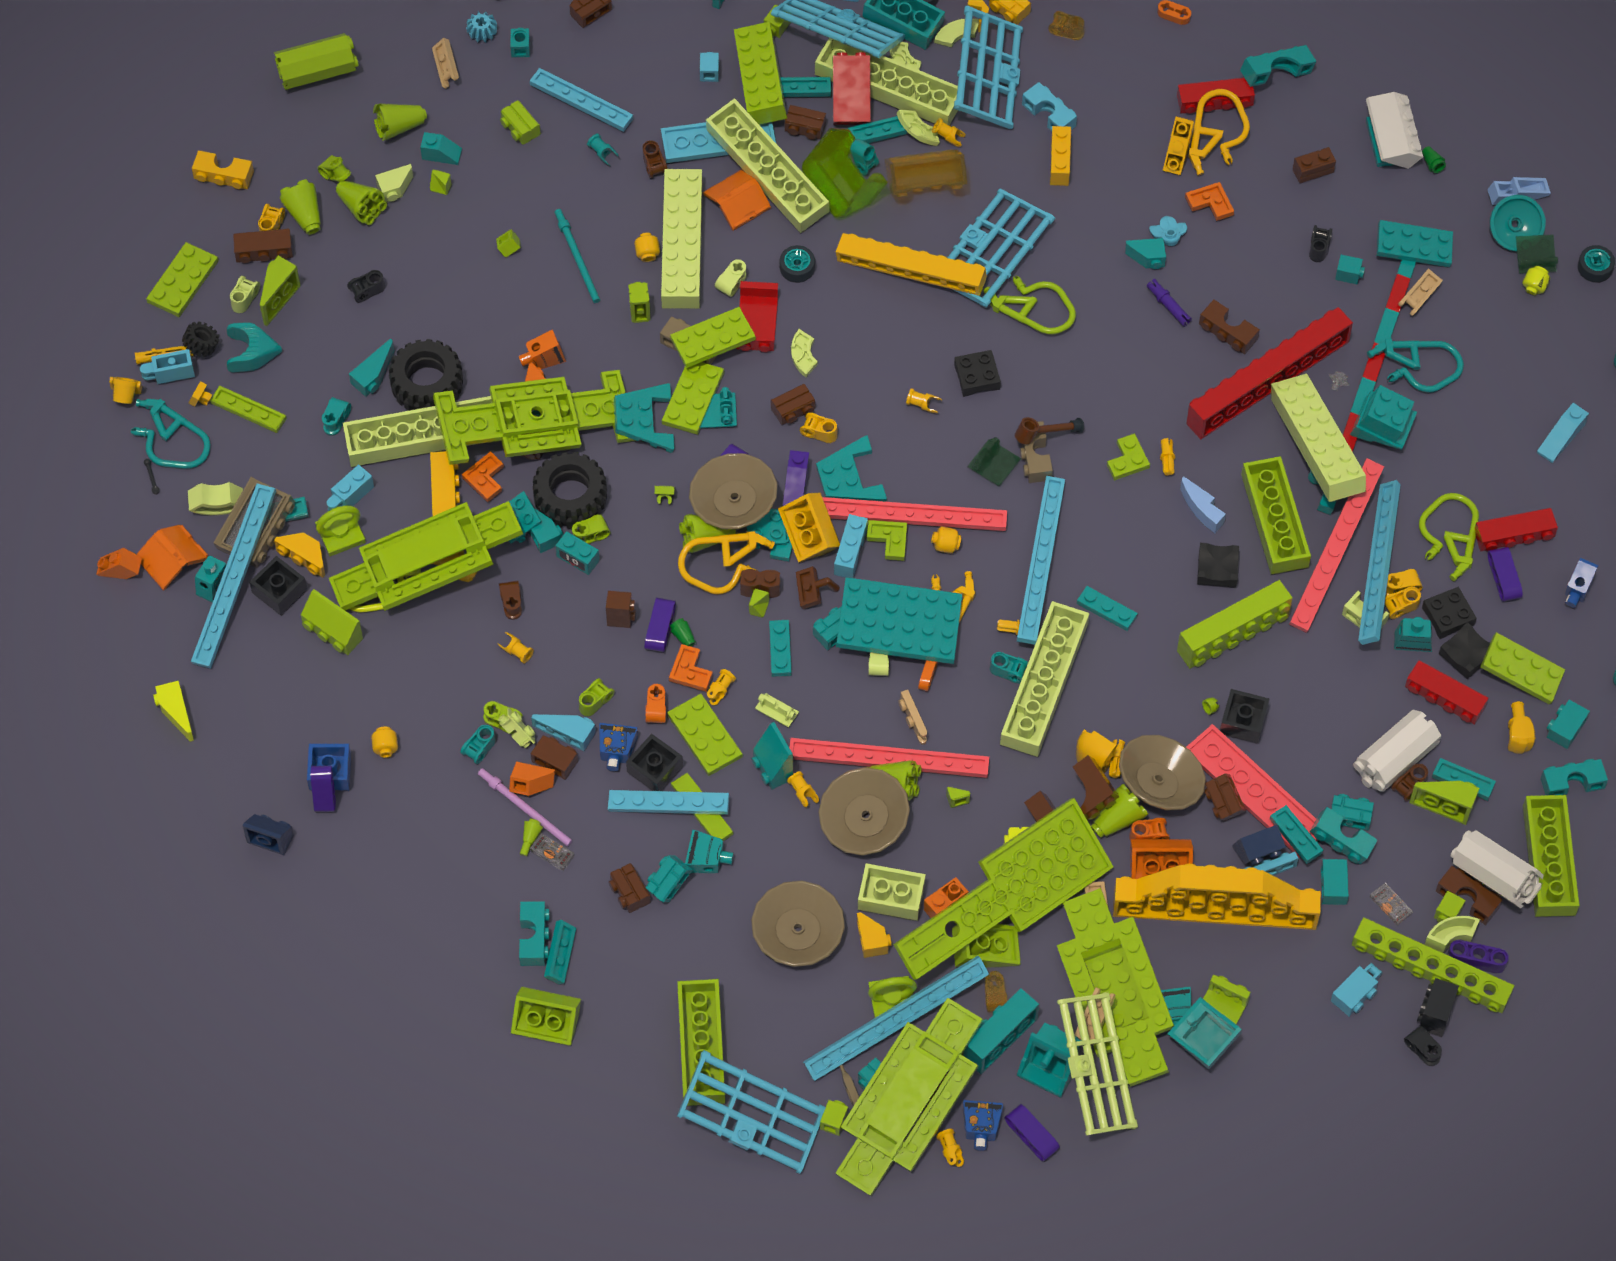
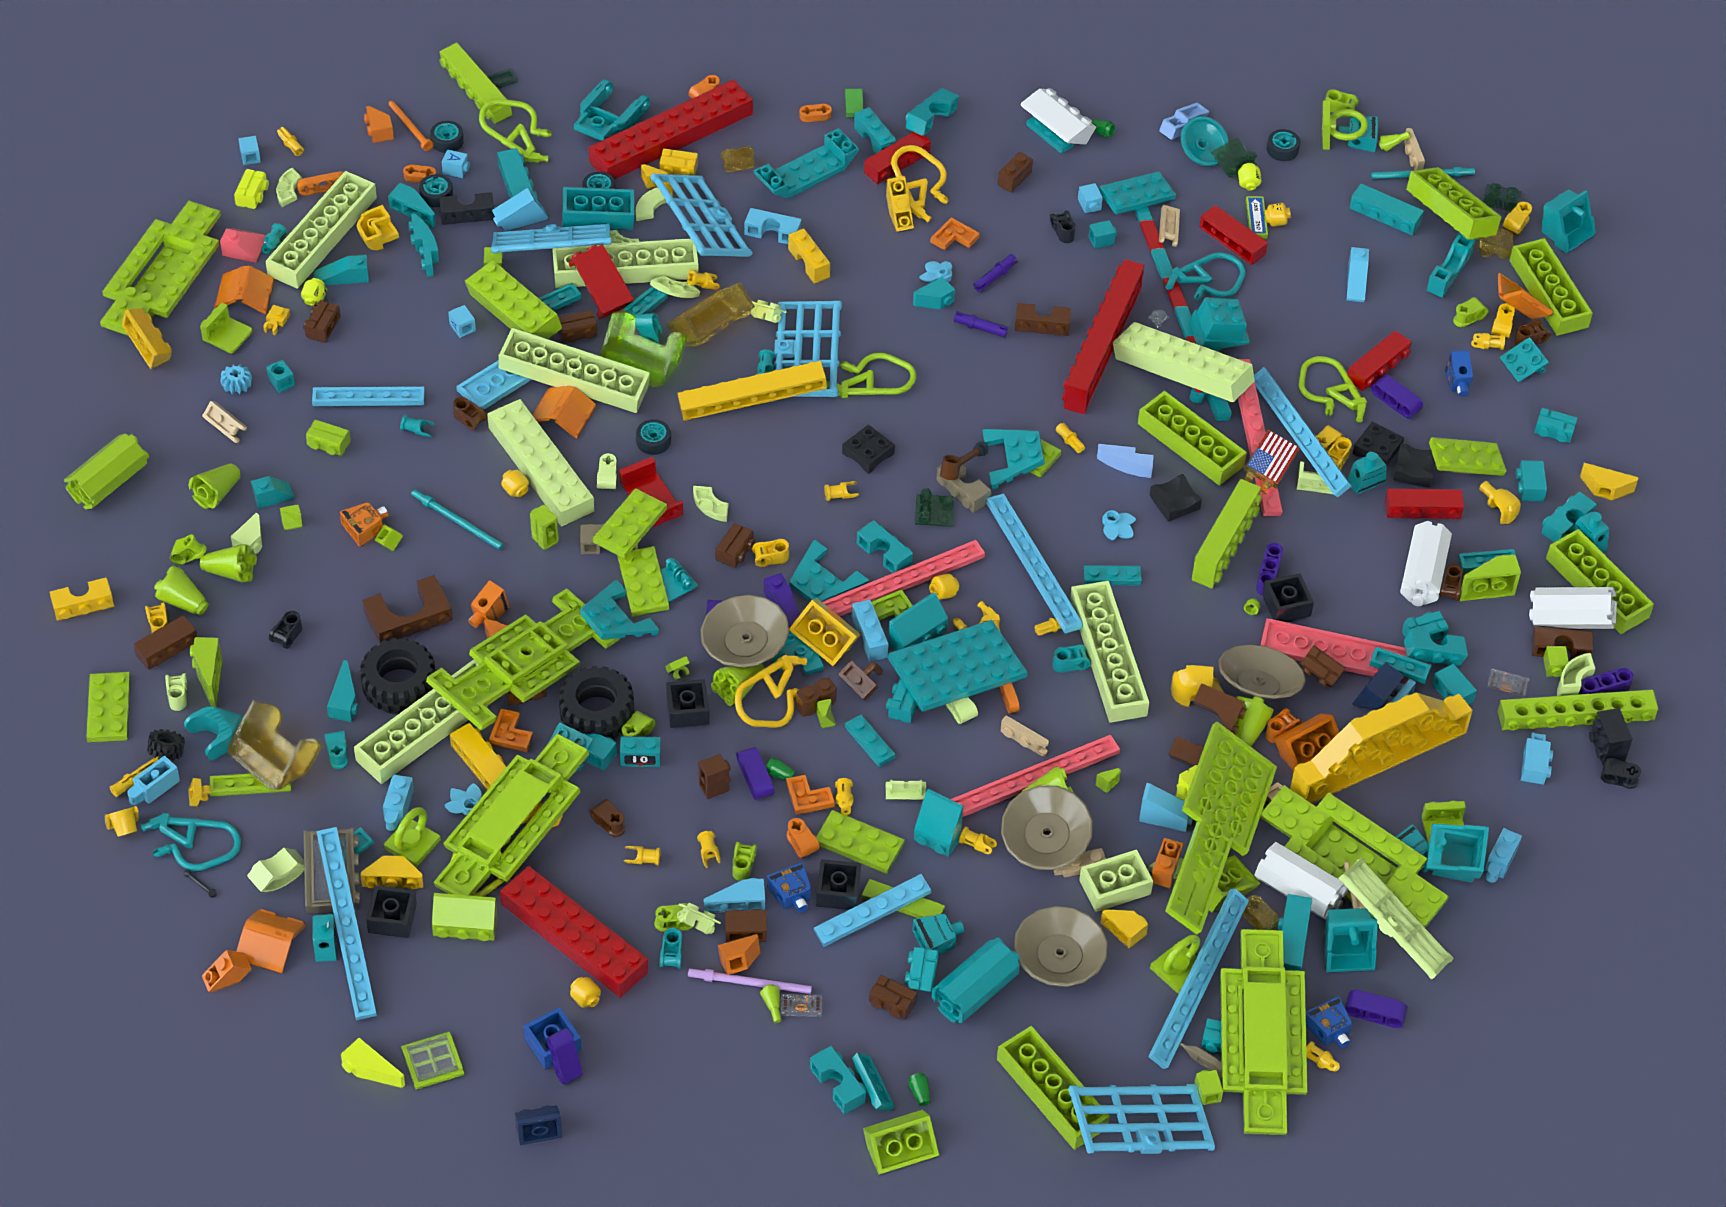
camera: 35 degrees left, 10 degrees down
(227, 732) = (432, 1060): none -> clear piece
(275, 387) = (268, 753): none -> clear yellow windscreen
(406, 516) = (463, 800): none -> medium azure plate
(412, 684) = (574, 931): none -> red brick
(496, 217) = (363, 522): none -> orange torso
(496, 333) = (389, 626): none -> reddish brown arch
(573, 671) = (708, 847): none -> yellow piece
(595, 979) = (920, 1088): none -> green cone
(646, 530) = (687, 703): none -> black brick
(705, 913) = (976, 980): none -> teal brick
(884, 858) = (1086, 858): none -> tan hinge
(894, 564) = (918, 623): none -> teal slope
(920, 461) = (875, 537): none -> teal arch
(945, 244) = (766, 362): none -> teal piece
(975, 843) = (1163, 809): none -> medium azure slope
(982, 192) = (772, 312): none -> yellowish green hinge
(1047, 978) = (1296, 876): none -> white brick
(1110, 448) = (1022, 452): none -> teal wing
(1124, 67) = (811, 167): none -> teal slope
(1148, 566) = (1119, 526): none -> medium azure plate
(1212, 56) = (868, 124): none -> teal arch
(1218, 19) = (853, 101): none -> bright green tile
(1228, 256) = (1000, 268): none -> dark purple pin
(1252, 1060) = (1502, 855): none -> medium azure brick
(1256, 671) = (1270, 565): none -> dark purple beam
(1328, 576) = (1270, 460): none -> tile
(1365, 227) = (1090, 198): none -> medium azure brick
(1474, 332) = (1233, 235): none -> red brick
(1513, 325) = (1256, 215): none -> tile
(1533, 332) = (1277, 214): none -> yellow head
(1581, 801) = (1594, 529): none -> teal torso

